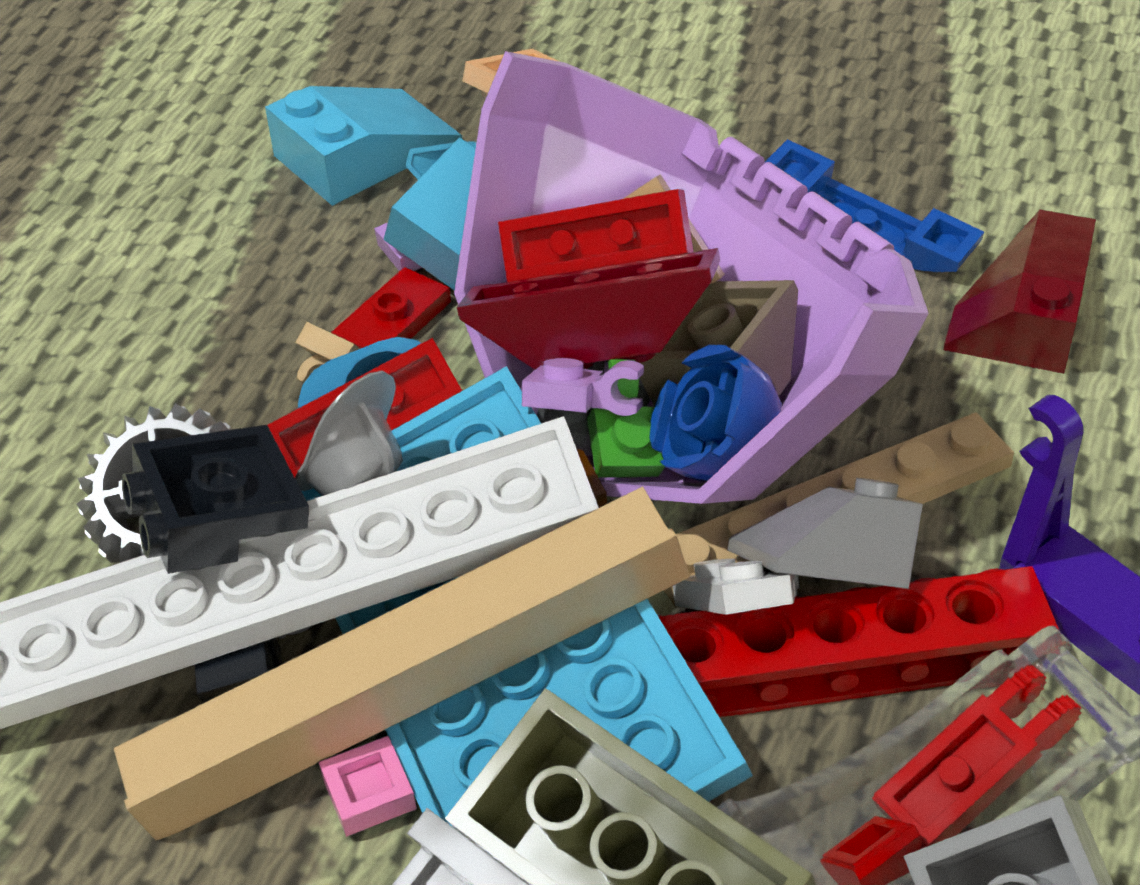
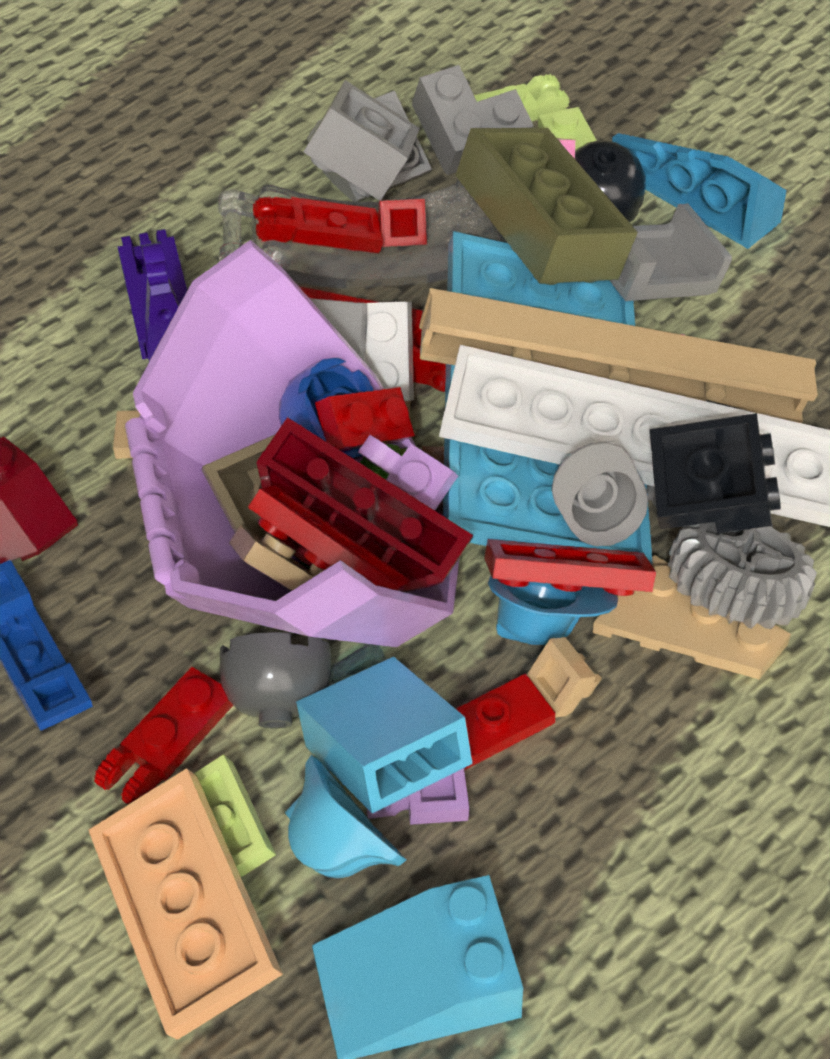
camera: 155 degrees left, 5 degrees up
(665, 416) = (353, 417): none -> red plate

